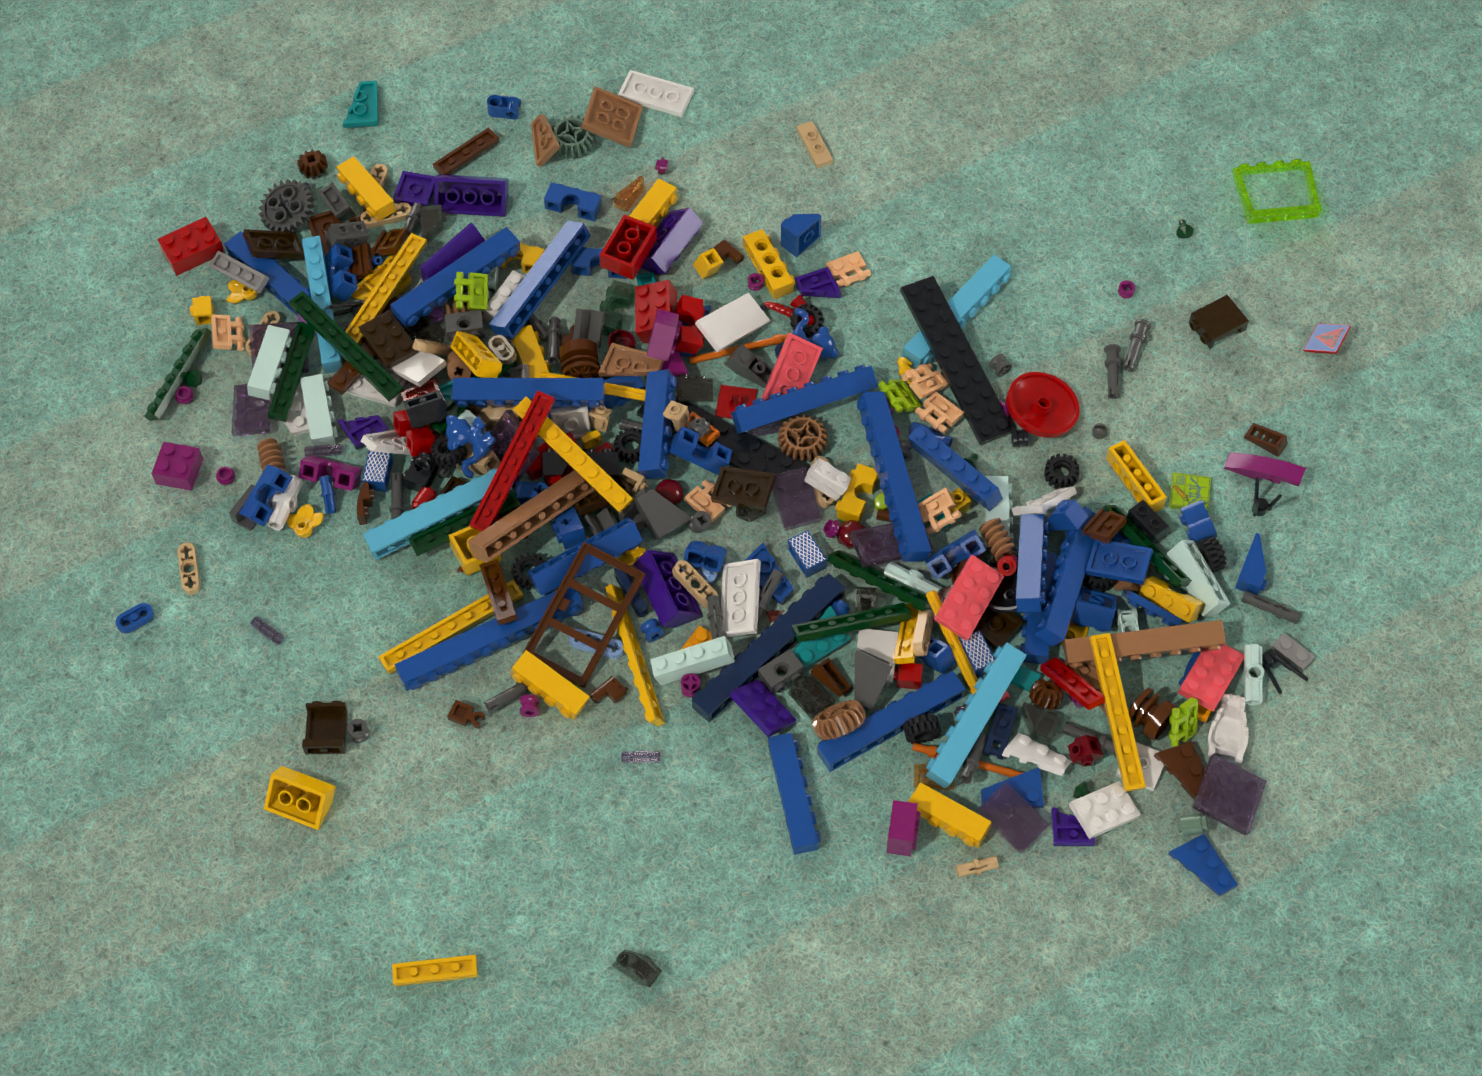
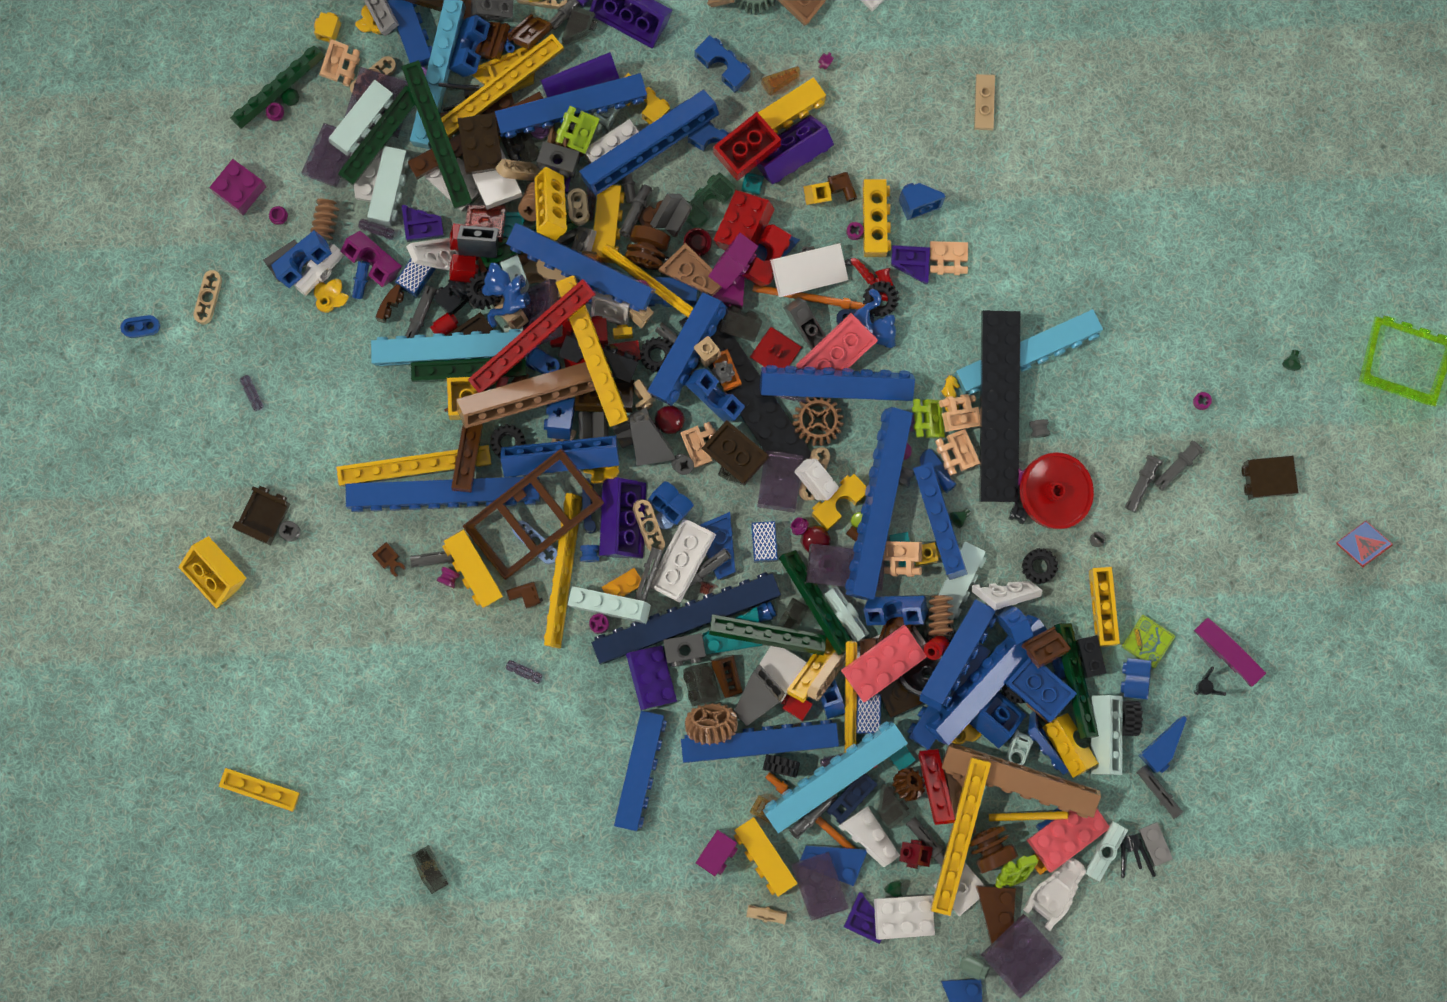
camera: 20 degrees right, 20 degrees up
(1168, 674) = (1028, 816): none -> yellow bar
(1276, 437) = (1243, 623): reddish brown slope -> none

